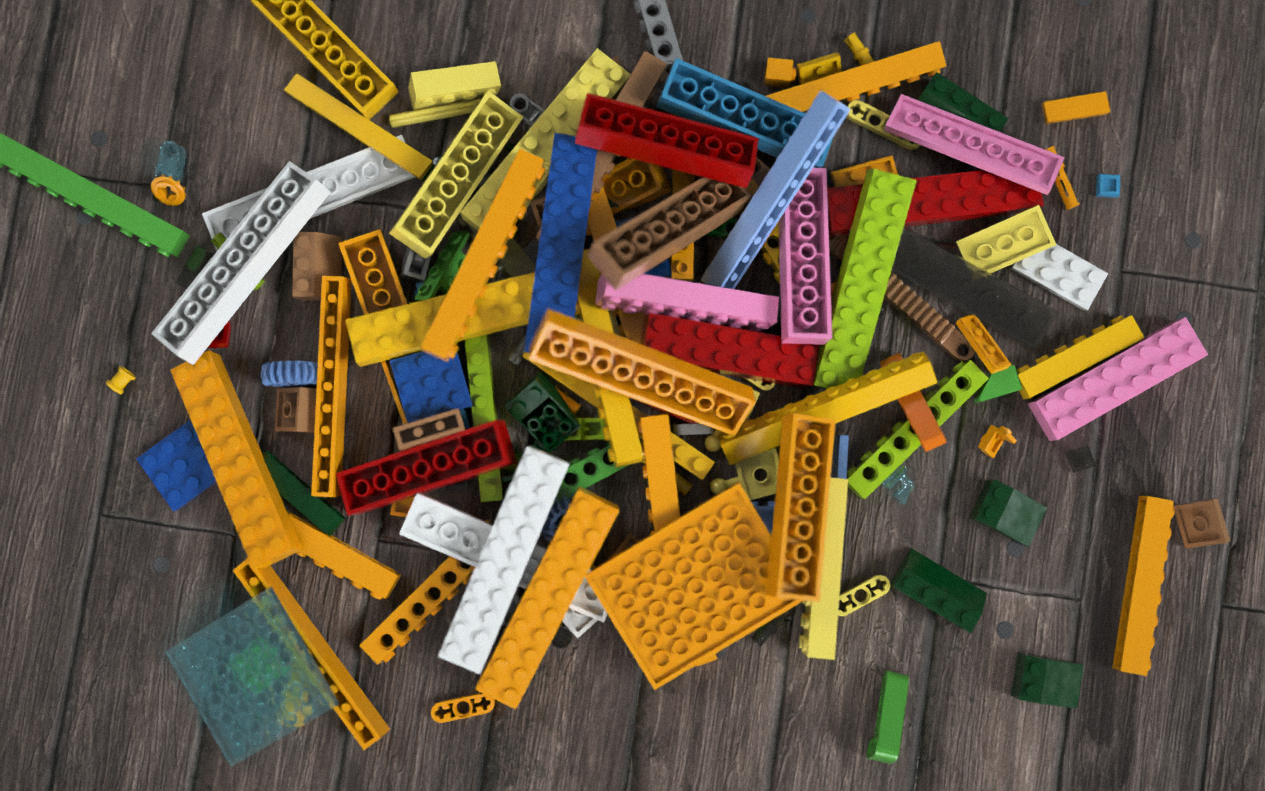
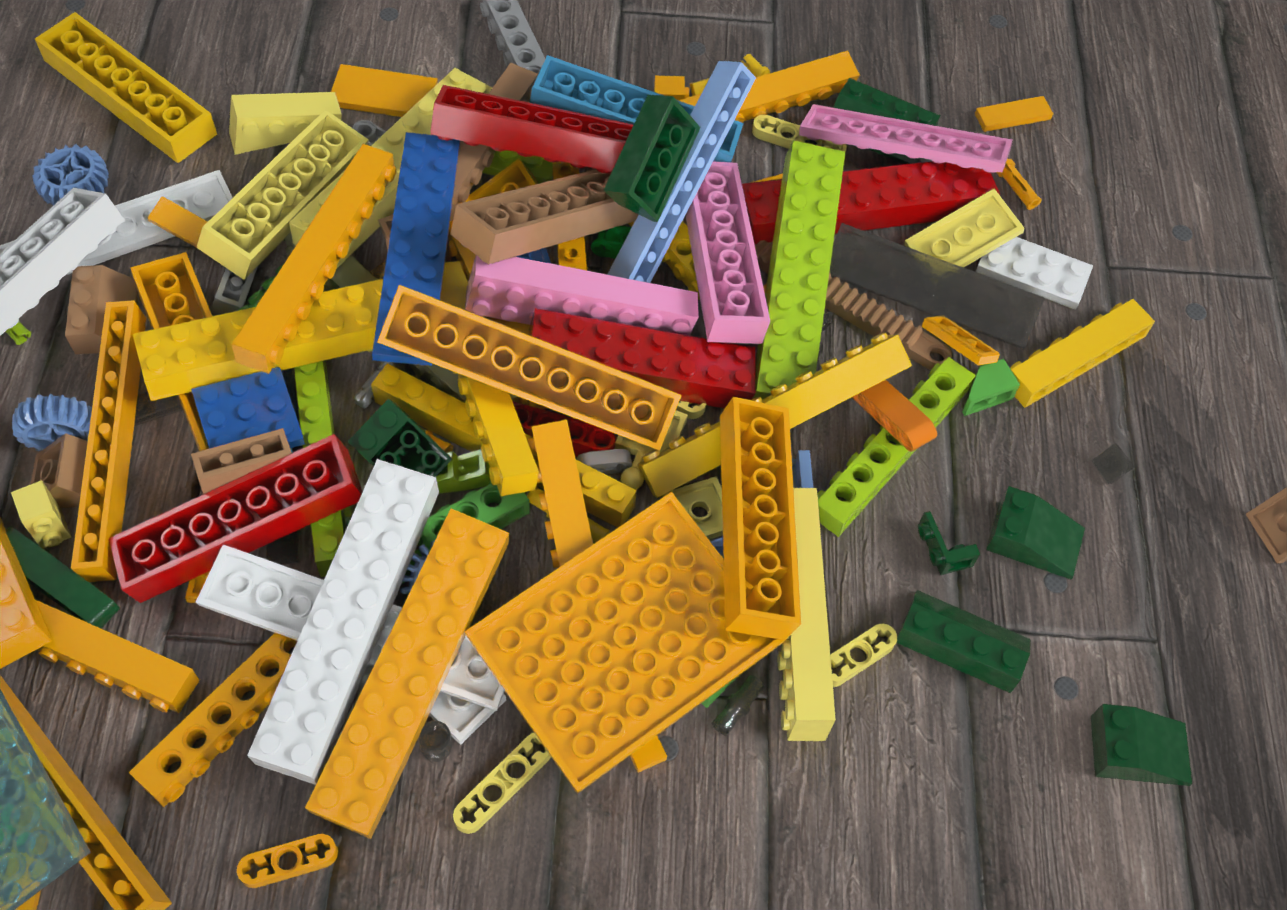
camera: 10 degrees left, 25 degrees down
(283, 150) = (69, 170): none -> medium blue gear
(287, 448) = (41, 515): none -> light yellow brick
(359, 126) = (160, 161): yellow tile -> none
(379, 193) = (177, 221): none -> light orange tile
(433, 113) = (246, 153): light yellow axle -> none
(535, 53) = (379, 90): none -> light orange tile
(604, 664) = (501, 779): none -> light yellow beam
(754, 184) = (652, 157): none -> dark green slope
(890, 716) = (929, 819): bright green beam -> none
(907, 484) = (893, 521): clear light blue piece -> none
(946, 527) = (946, 560): none -> dark green bracket
(994, 438) = (999, 447): light orange bracket -> none
(1108, 185) = (1069, 183): dark azure tile -> none
(1117, 379) = (1132, 372): bright pink brick -> none
(1143, 585) = (1236, 614): light orange brick -> none

